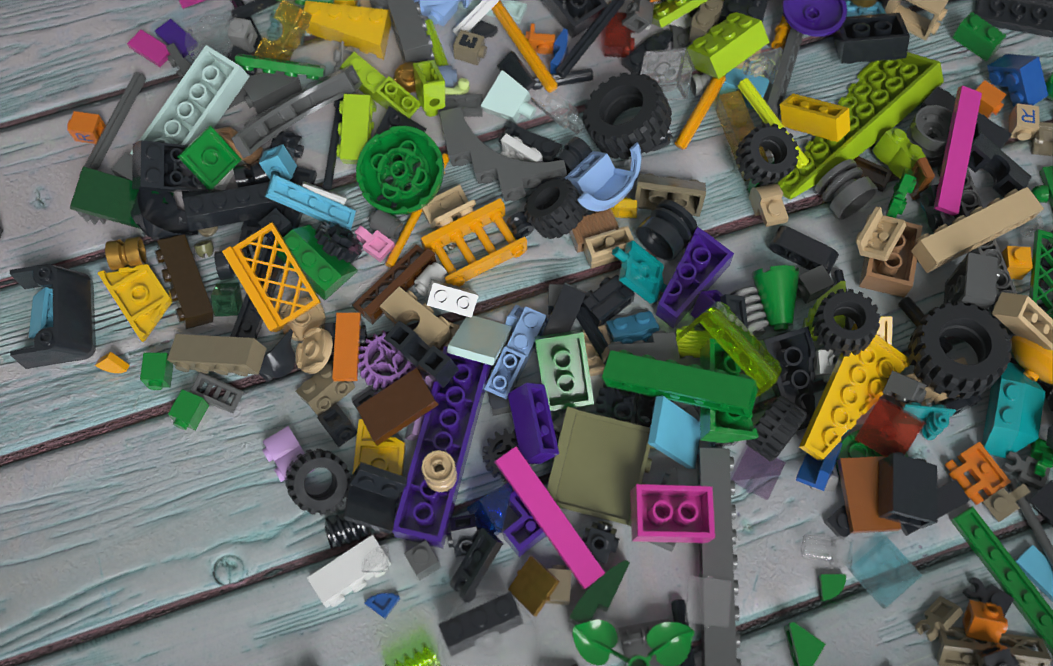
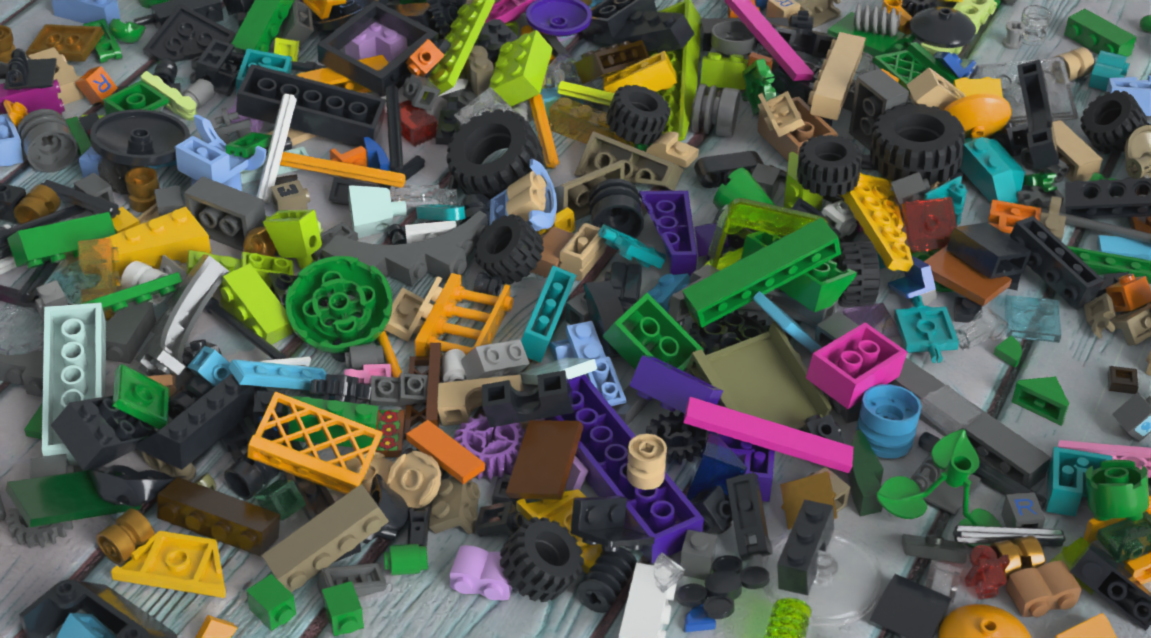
camera: 45 degrees left, 25 degrees down
(256, 405) = (406, 559): none -> green brick
(284, 390) = (418, 527): none -> black bar
(316, 51) = (139, 273): none -> white wheel
(345, 296) = (392, 425): none -> tile
(375, 268) = (399, 391): none -> dark grey slope
(414, 597) = (723, 586): none -> black piece
(529, 282) = (547, 313): none -> teal brick
(548, 137) = (440, 212): none -> teal beam
(605, 173) = (526, 195): none -> tan brick
(670, 568) = (889, 419): none -> dark azure wheel
(728, 190) = (639, 165): none -> dark tan wedge
(786, 515) = (926, 329): none -> teal plate
(811, 84) = (608, 60): none -> dark brown brick
(873, 75) = (657, 29): none -> black wedge
(951, 545) = (1057, 263): none -> black brick
(1023, 147) = (802, 20): none -> black gear

